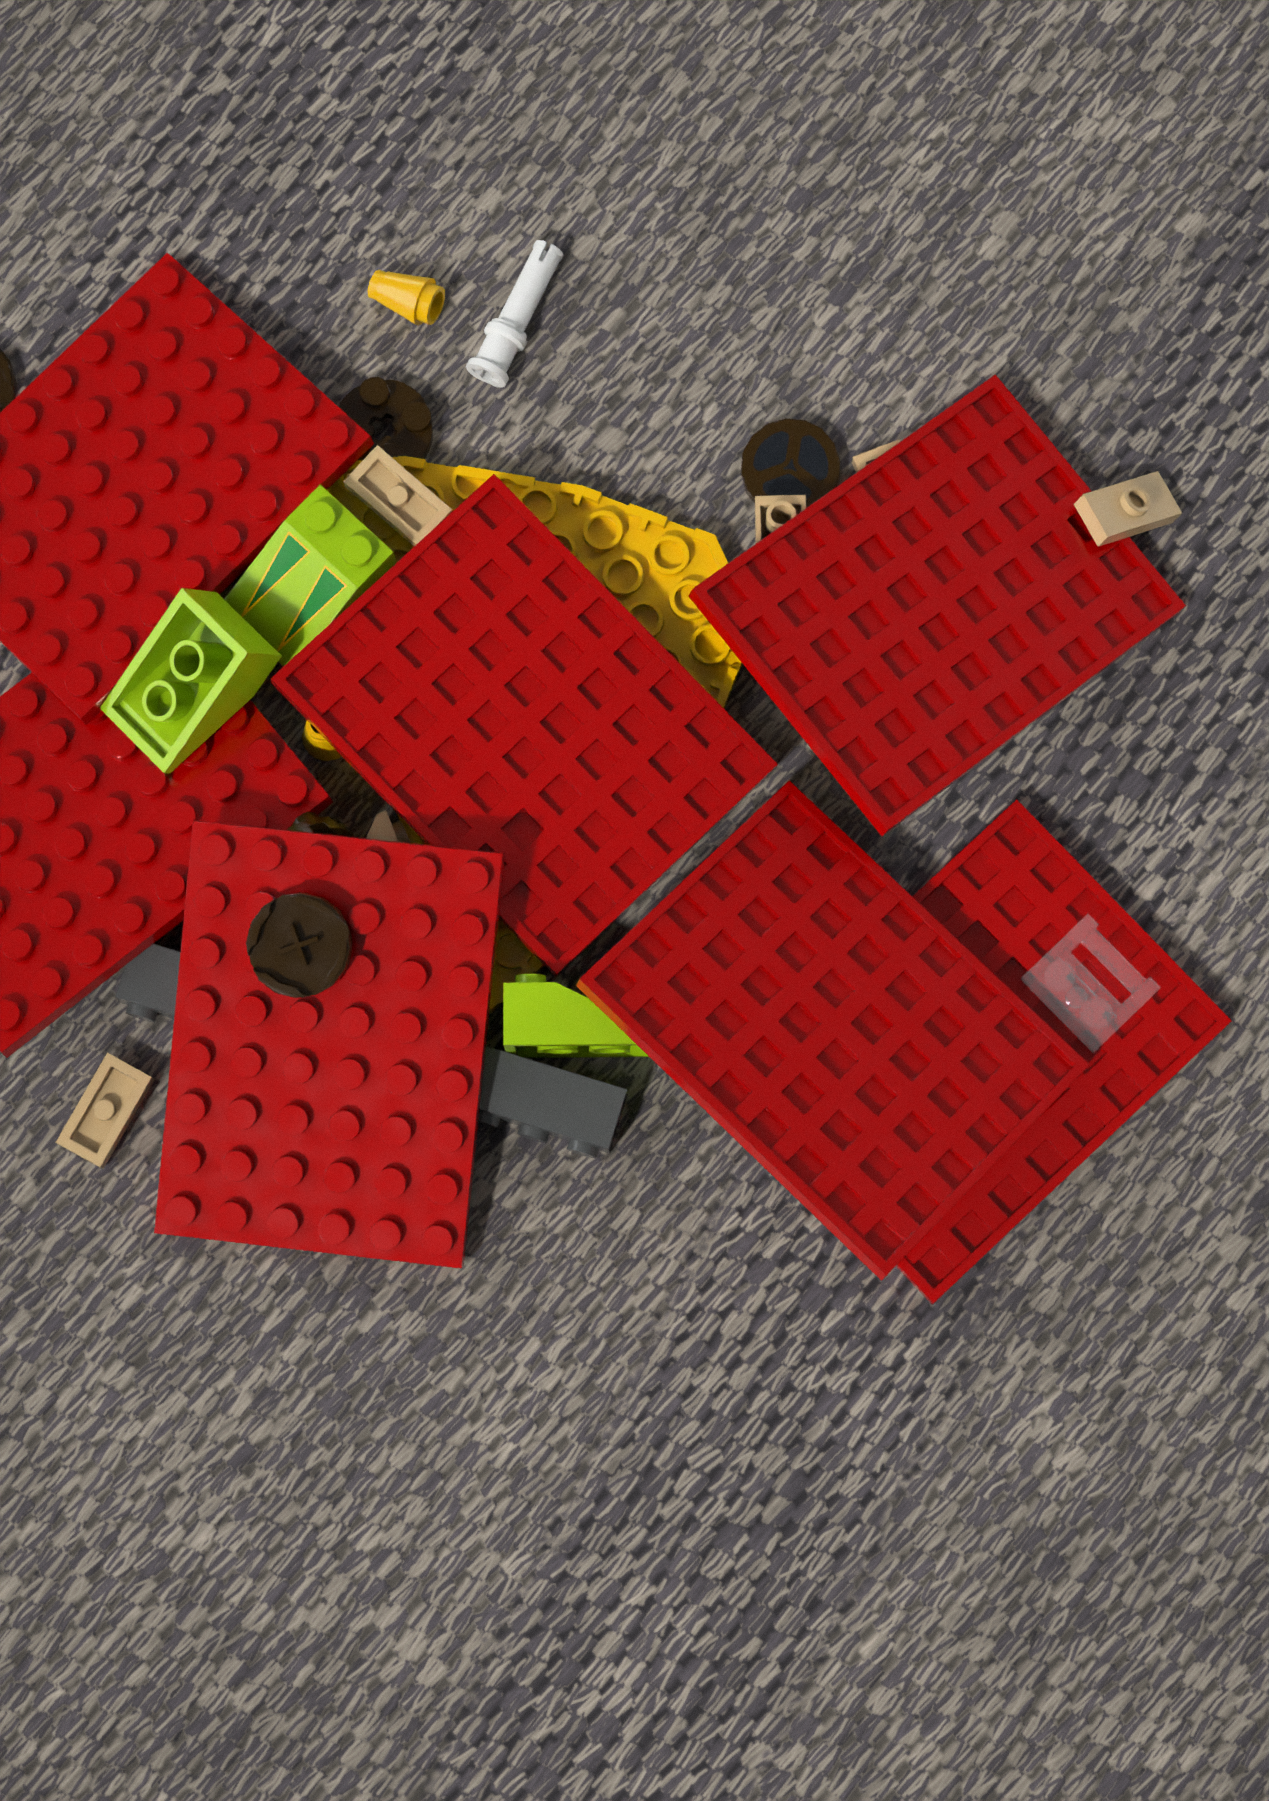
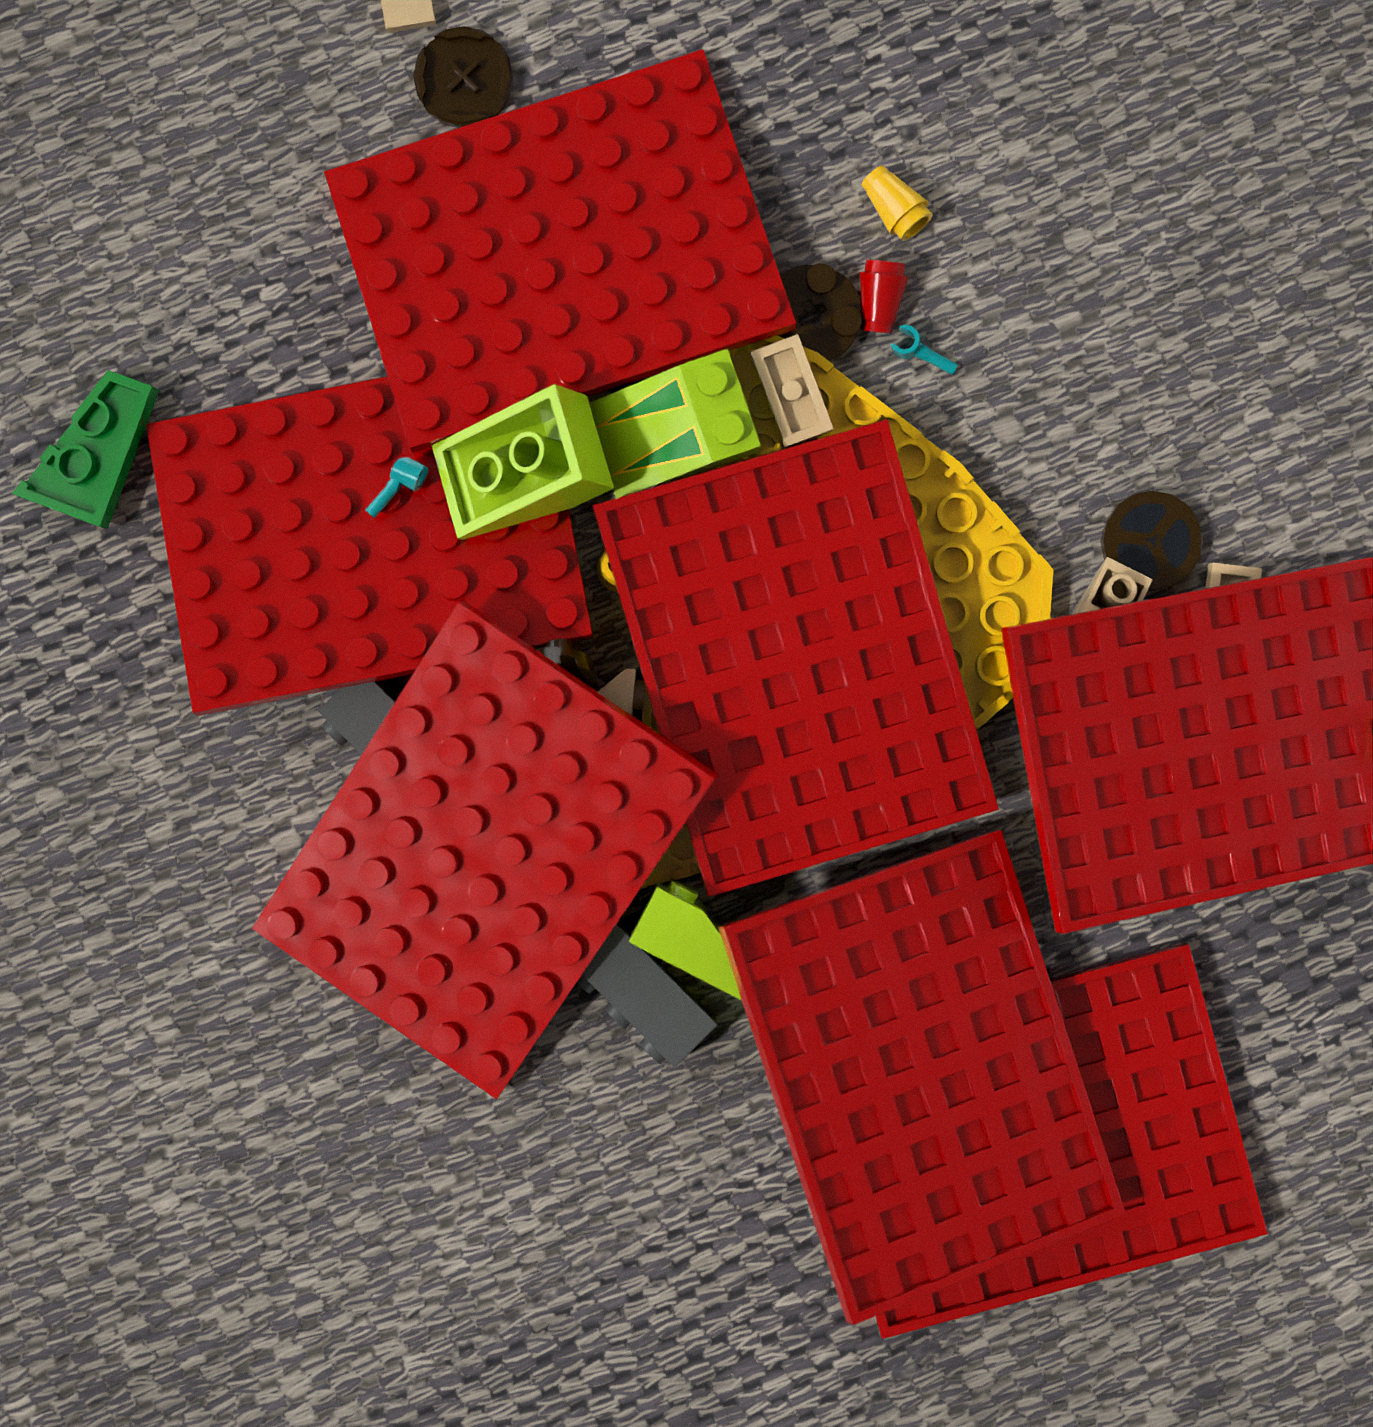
camera: 25 degrees right, 10 degrees up
(87, 741) = (405, 473): none -> teal hand
(105, 1110) = (261, 800): tan plate -> none
(299, 944) = (496, 762): dark brown tile -> none
(435, 378) = (881, 294): none -> red cone
(496, 411) = (922, 351): none -> teal hand
(506, 333) = (966, 284): white pin -> none
(1077, 994) = (1148, 1144): clear plate -> none

